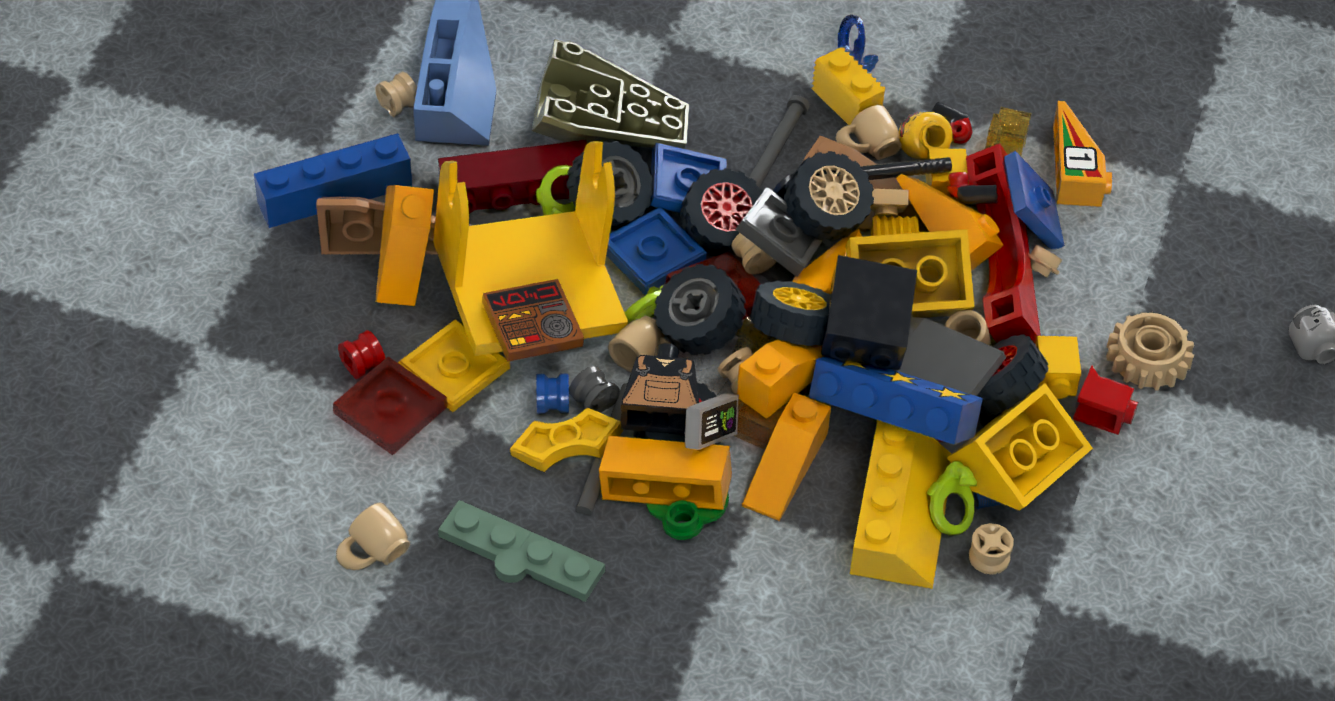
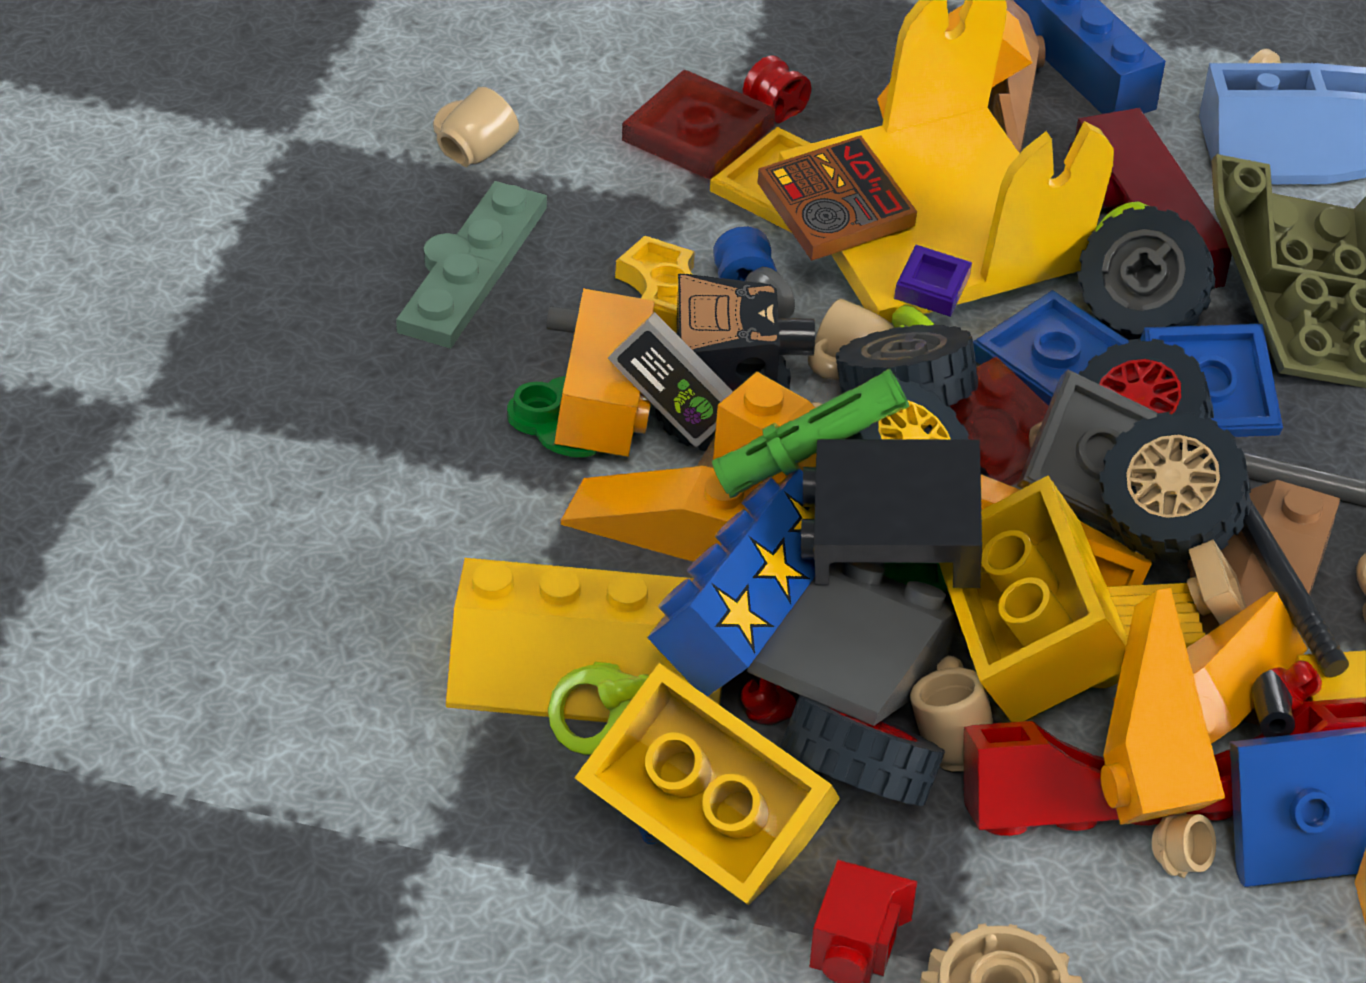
camera: 85 degrees right, 5 degrees down
(610, 286) = (933, 280): none -> dark purple tile
(812, 342) = (788, 444): none -> bright green pin
(991, 538) = (510, 748): tan wheel -> none
(1011, 233) = (1157, 733): none -> light orange slope
(1063, 366) = (931, 847): yellow brick -> none

